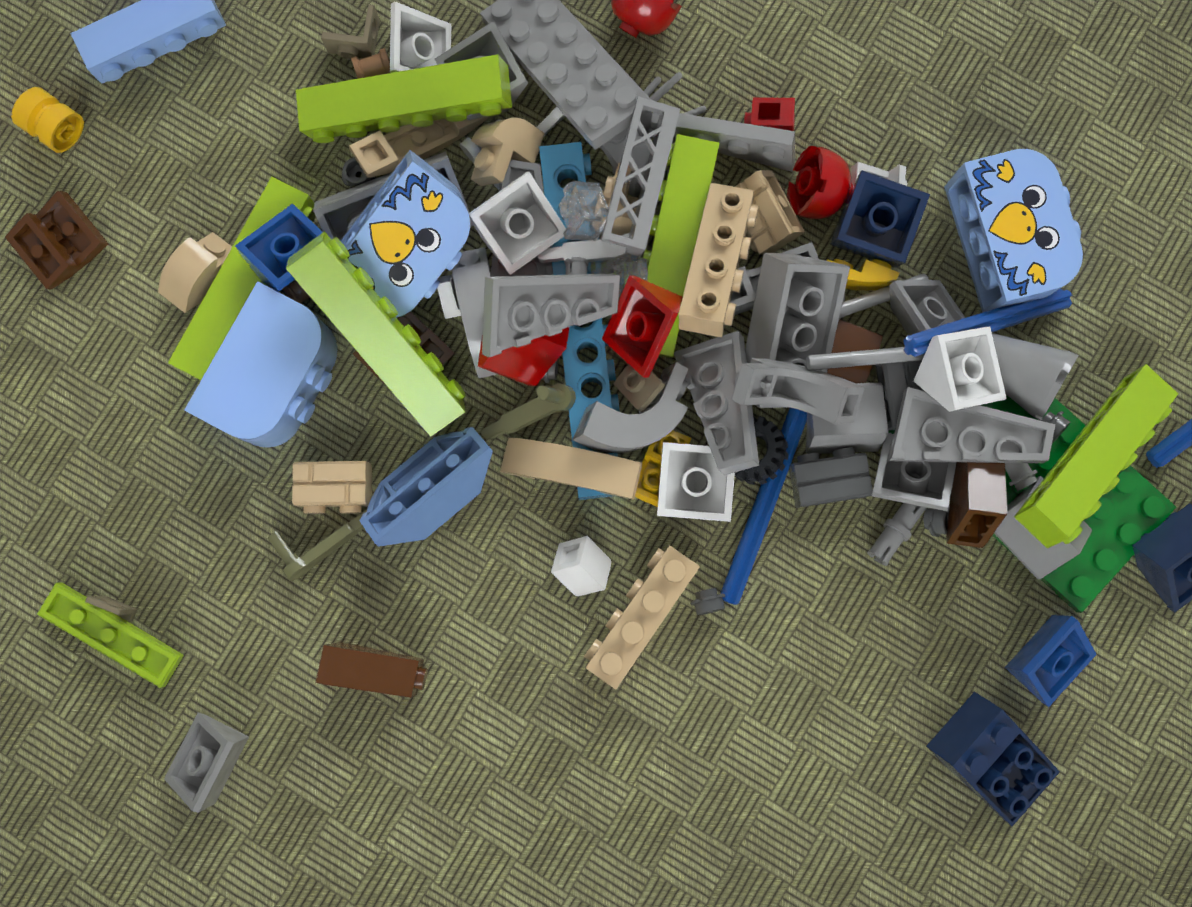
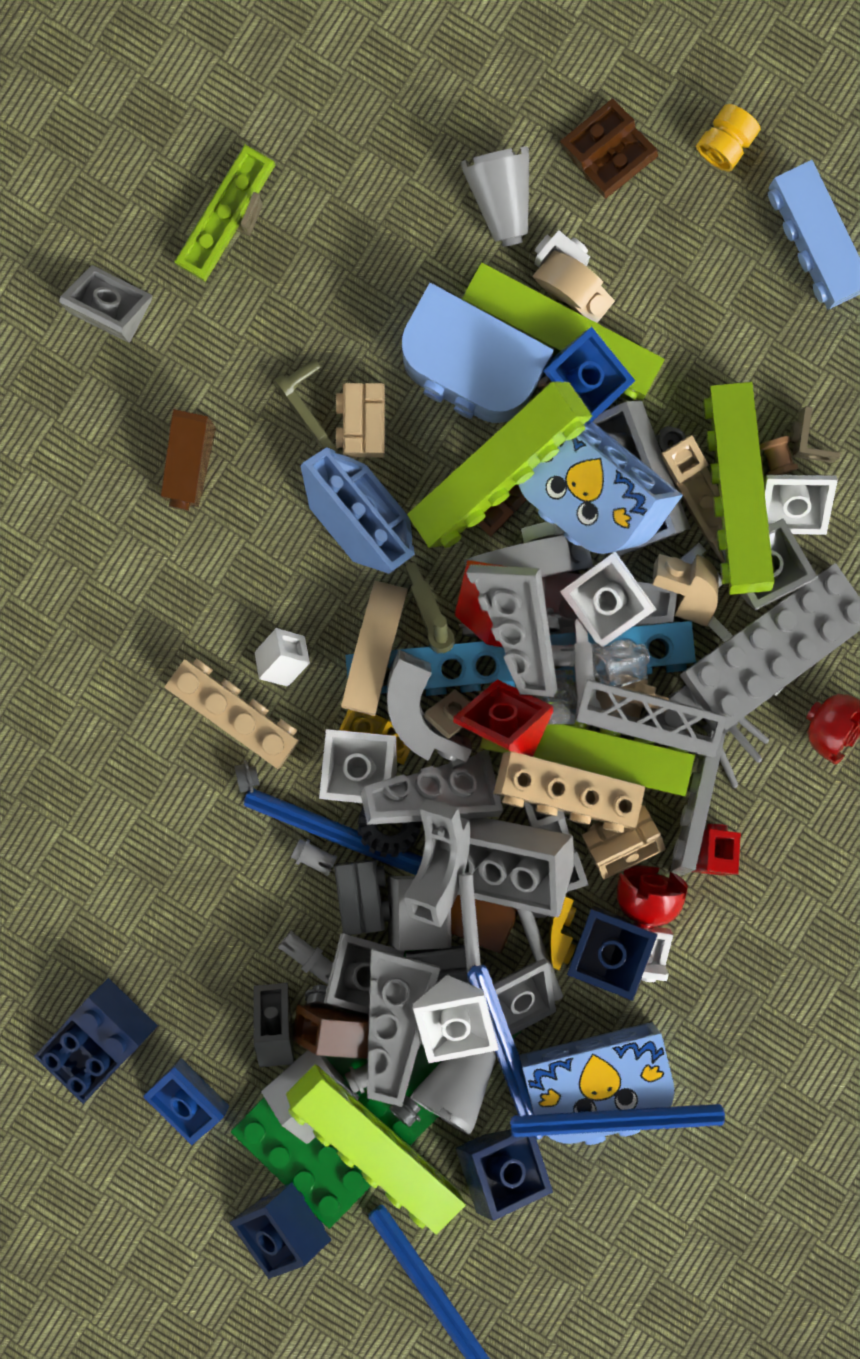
camera: 85 degrees right, 5 degrees up
(94, 344) = (502, 192): none -> light grey cone
(150, 285) = (563, 244): none -> white bracket
(790, 530) = (313, 857): none -> light grey pin
(967, 569) = (273, 1025): none -> dark grey slope
(1057, 204) = (617, 1120): none -> blue axle
(1108, 327) = (503, 1172): none -> dark blue slope

